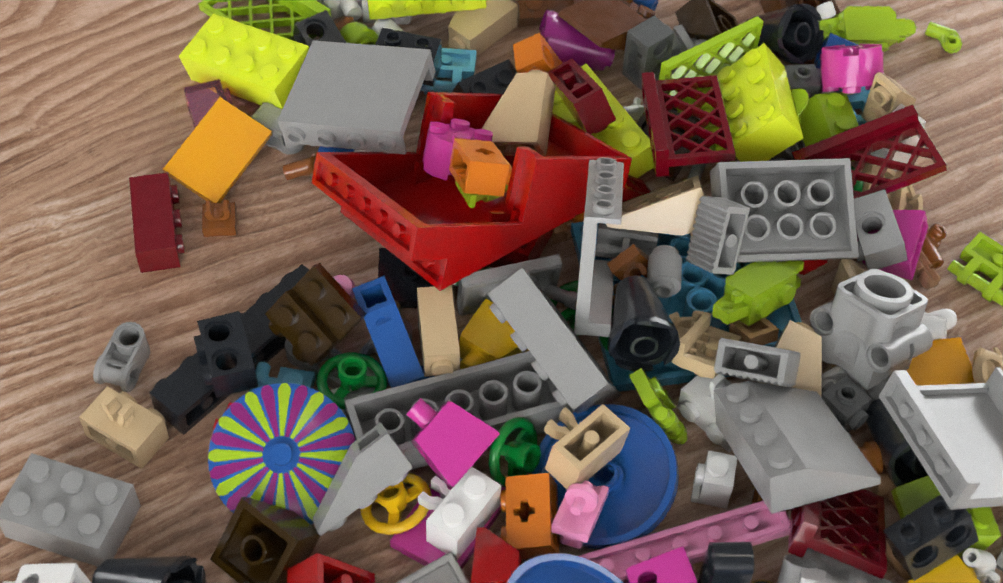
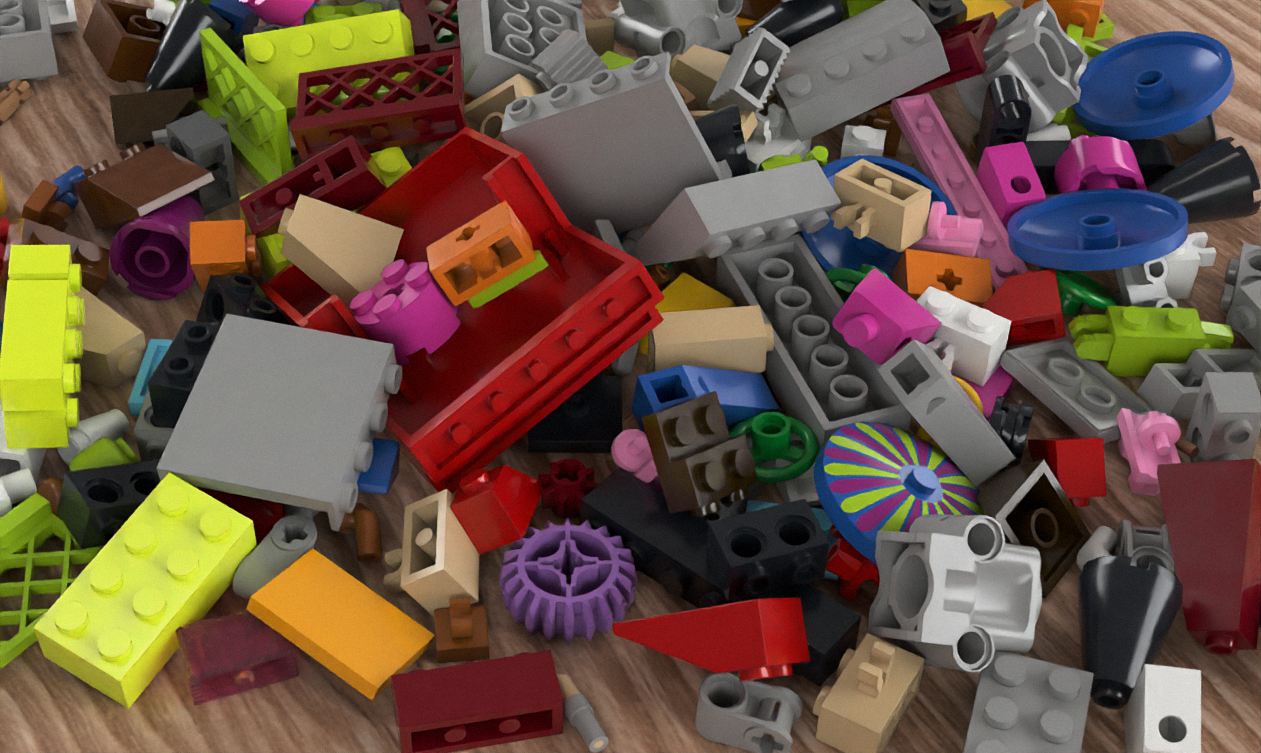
camera: 90 degrees left, 10 degrees down
(149, 276) = (581, 715): none -> light grey piece
(160, 329) = (747, 636): none -> red slope
(170, 460) = (956, 591): none -> light grey piece
(231, 257) = (599, 585): none -> medium lavender gear
(267, 197) = (435, 557): none -> tan brick
(302, 220) = (496, 506): none -> red slope
(332, 261) = (566, 486): none -> dark red gear
(362, 544) = (1012, 425): none -> black wheel

